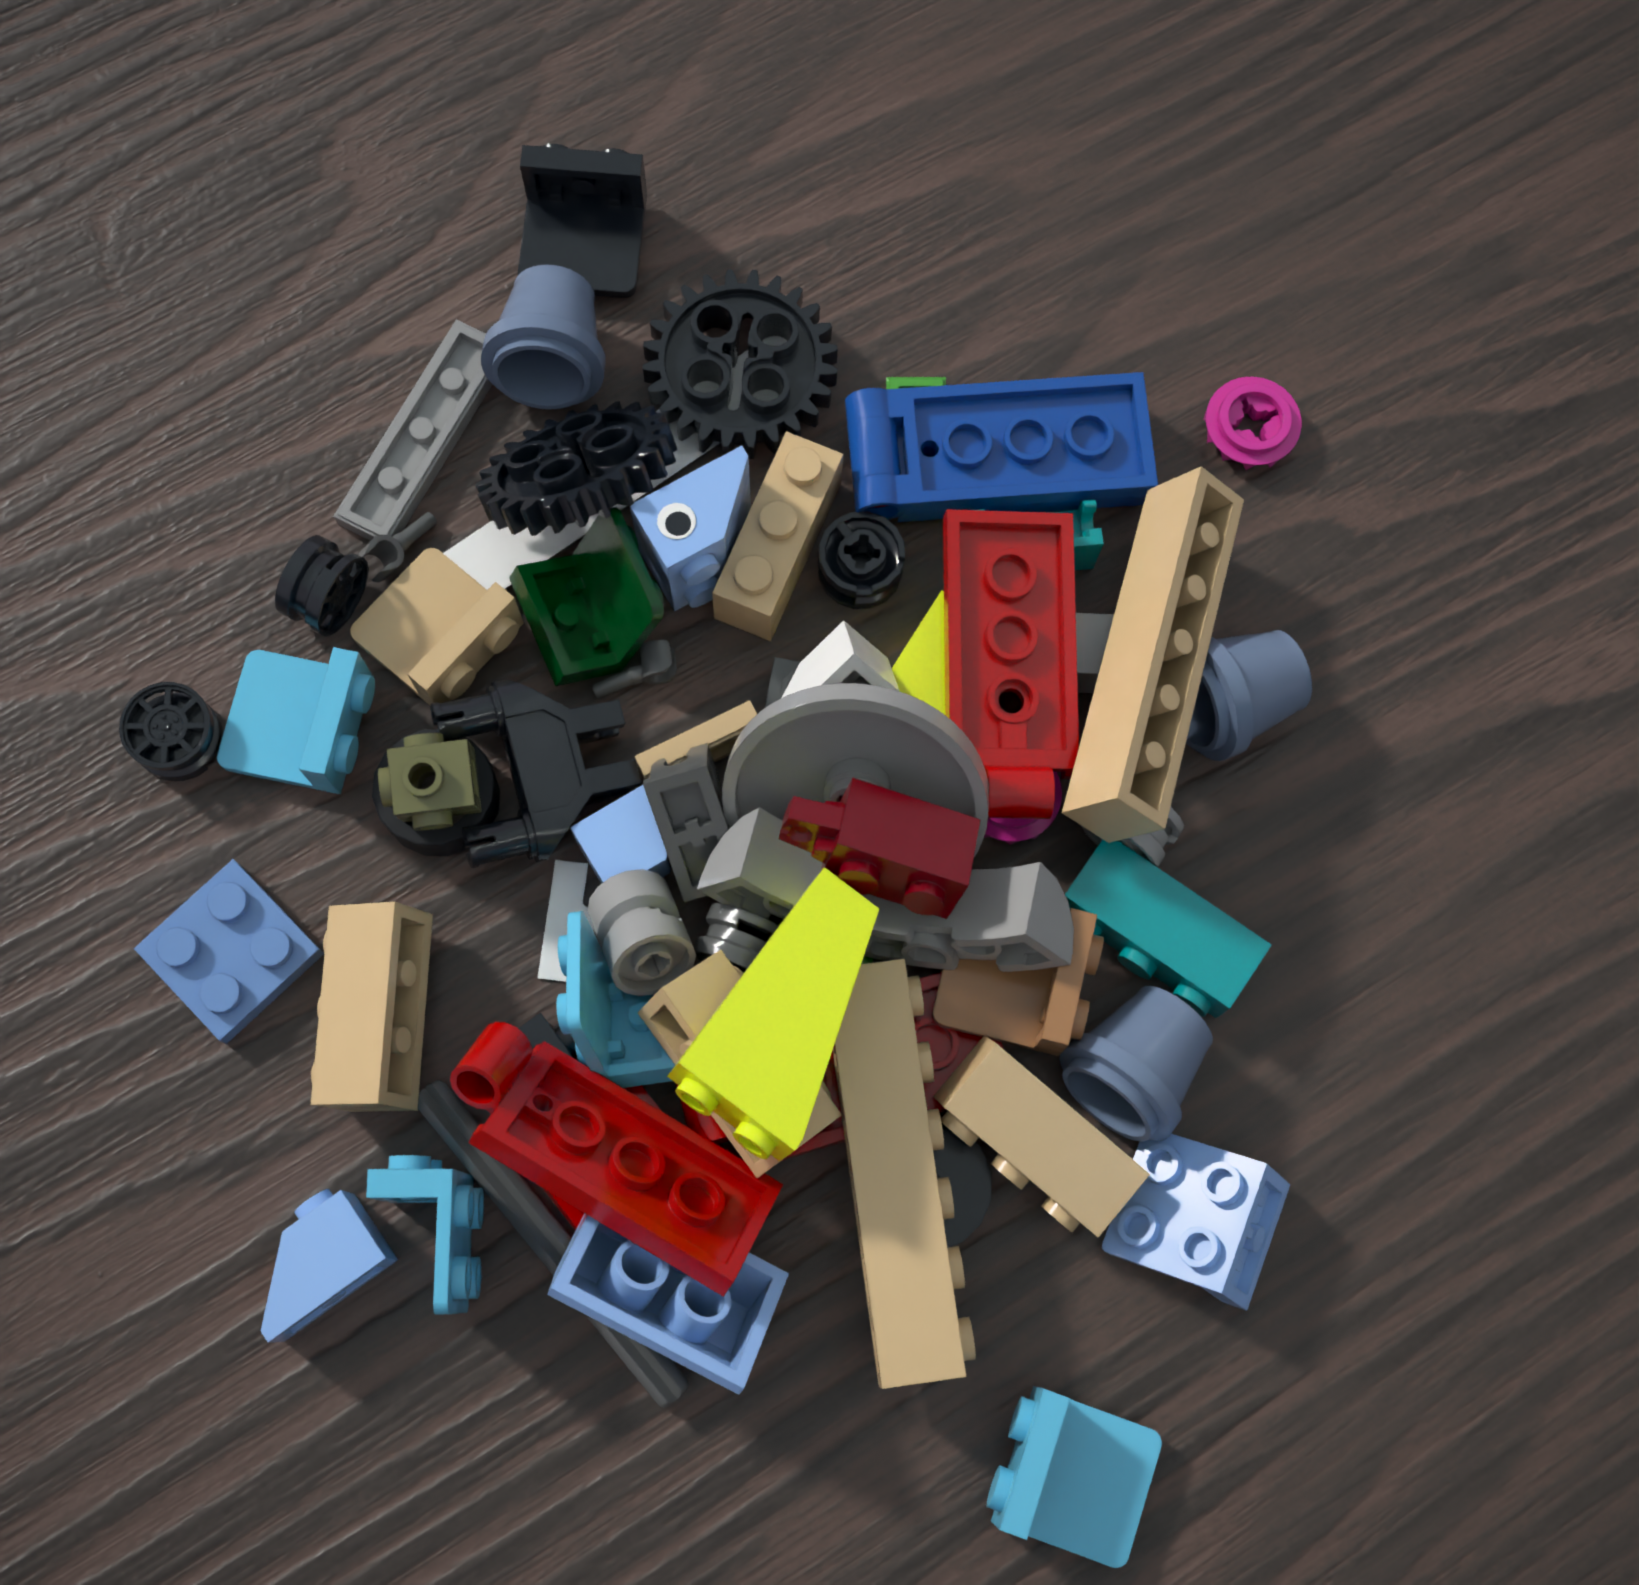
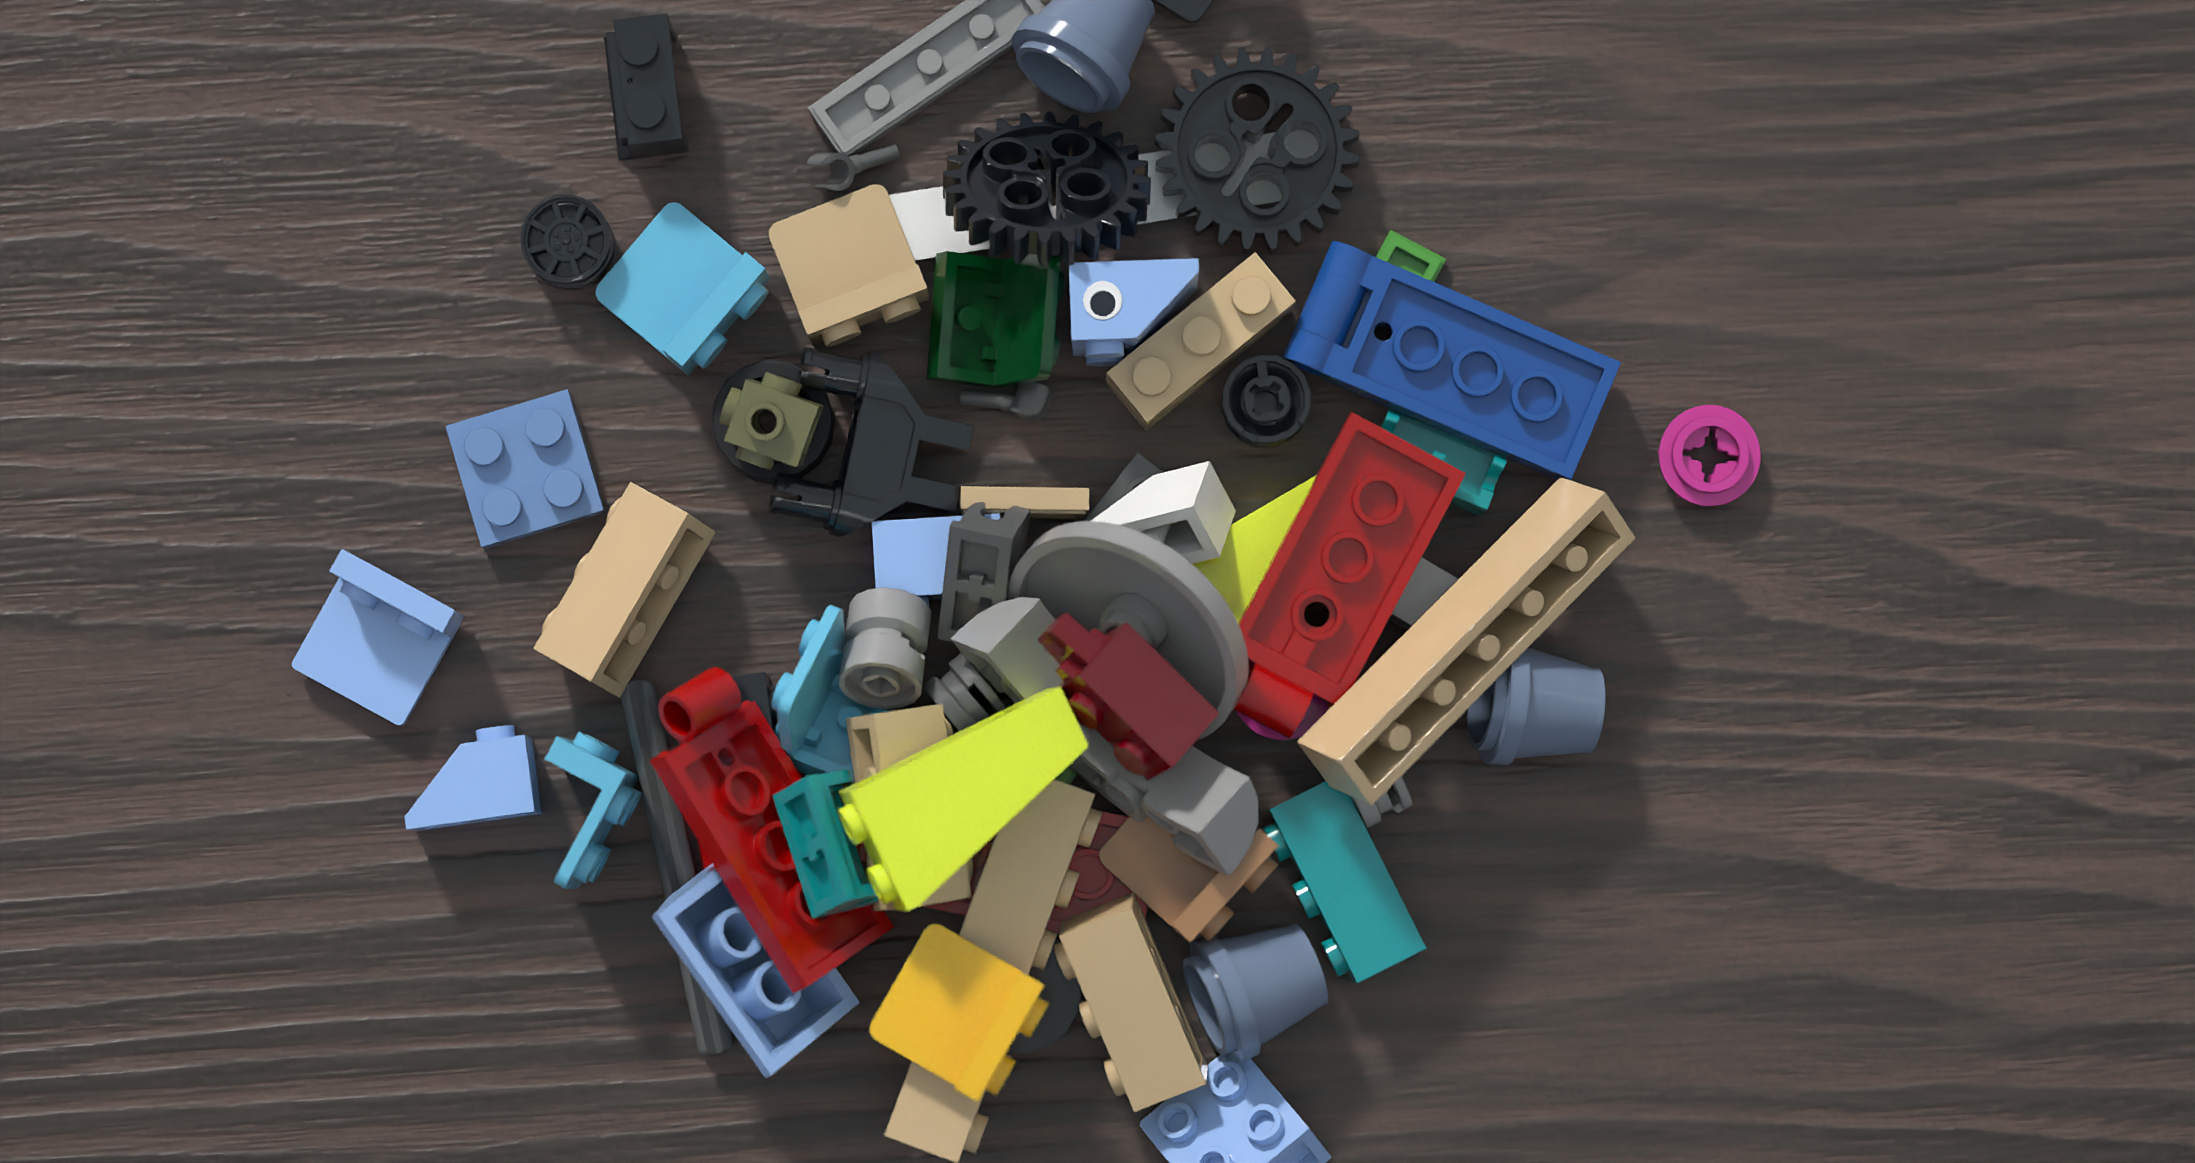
camera: 30 degrees right, 10 degrees up
(158, 1174) = (376, 639): none -> light blue bracket
(177, 566) = (644, 87): none -> black window
(320, 585) = (764, 176): black wheel -> none
(565, 897) = (830, 588): white sticker -> none
(677, 1138) = (820, 846): none -> teal hinge
(893, 1227) = (958, 1011): none -> yellow bracket

